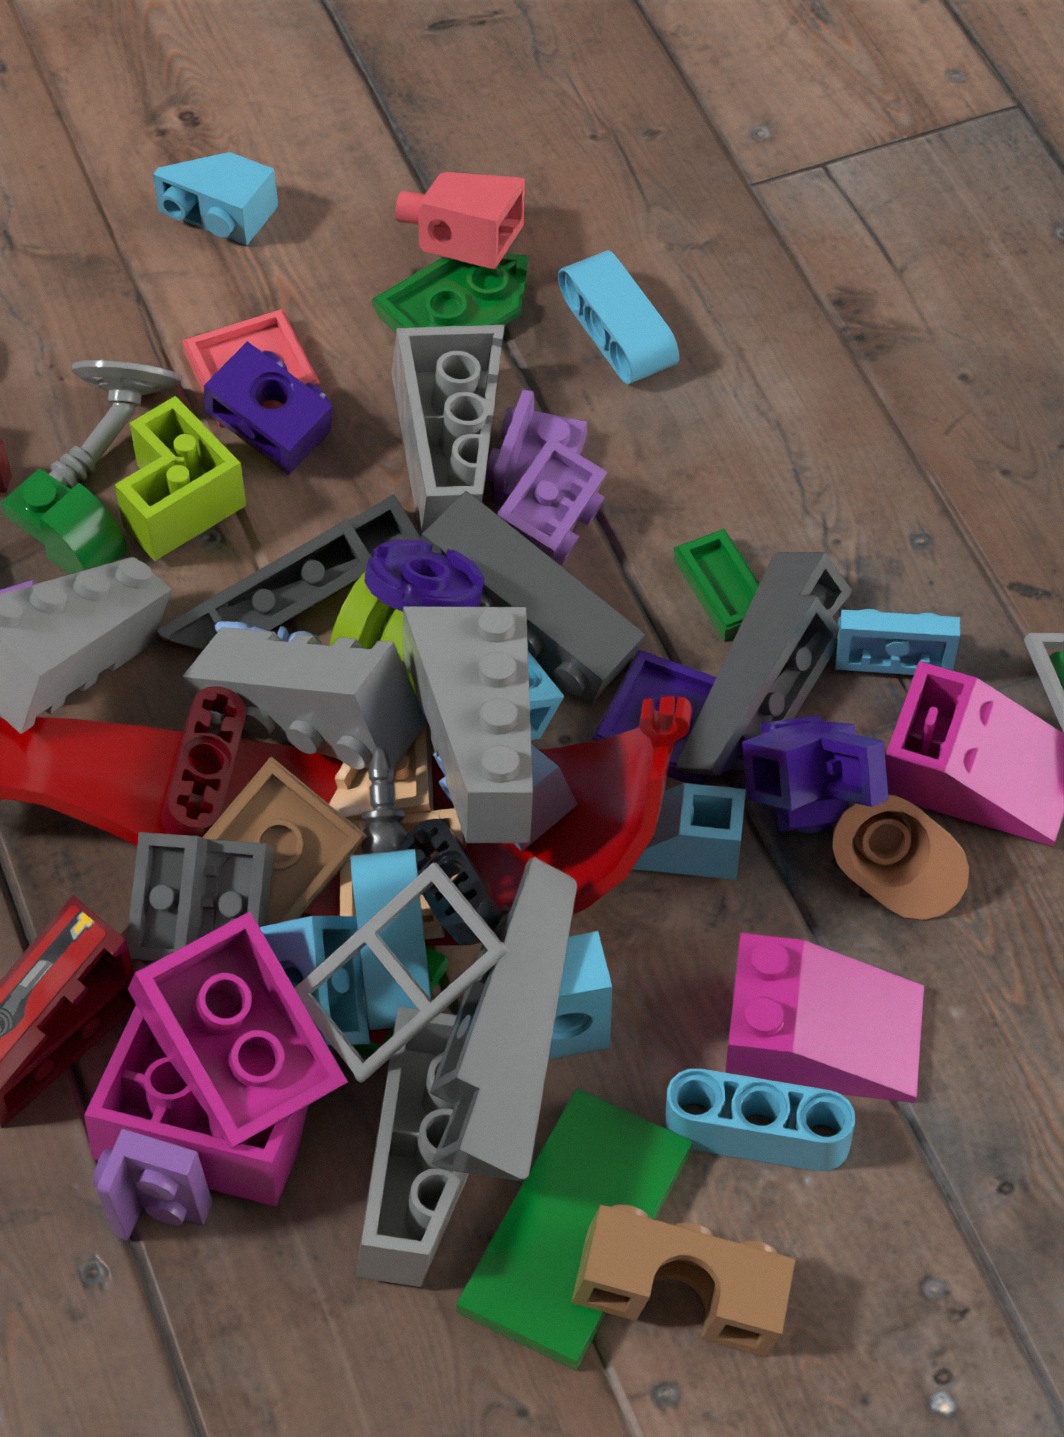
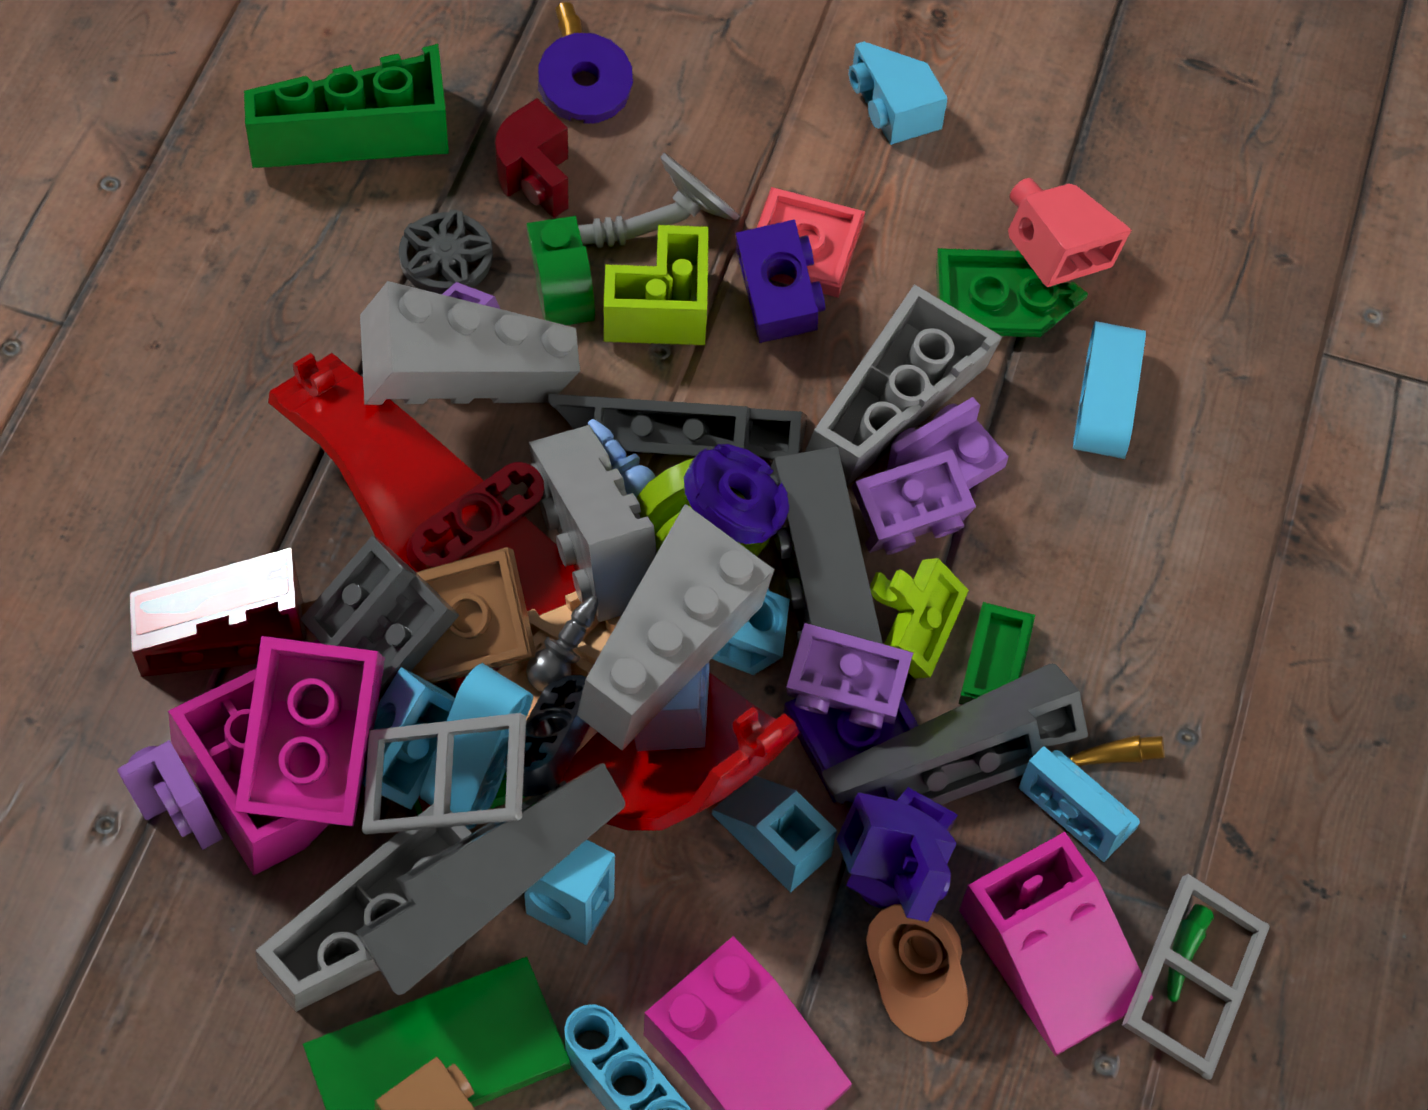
camera: 35 degrees right, 5 degrees up
(636, 664) = (848, 676): none -> medium lavender bracket
(638, 579) = (925, 614): none -> lime plate
(890, 580) = (1122, 750): none -> pearl gold helmet

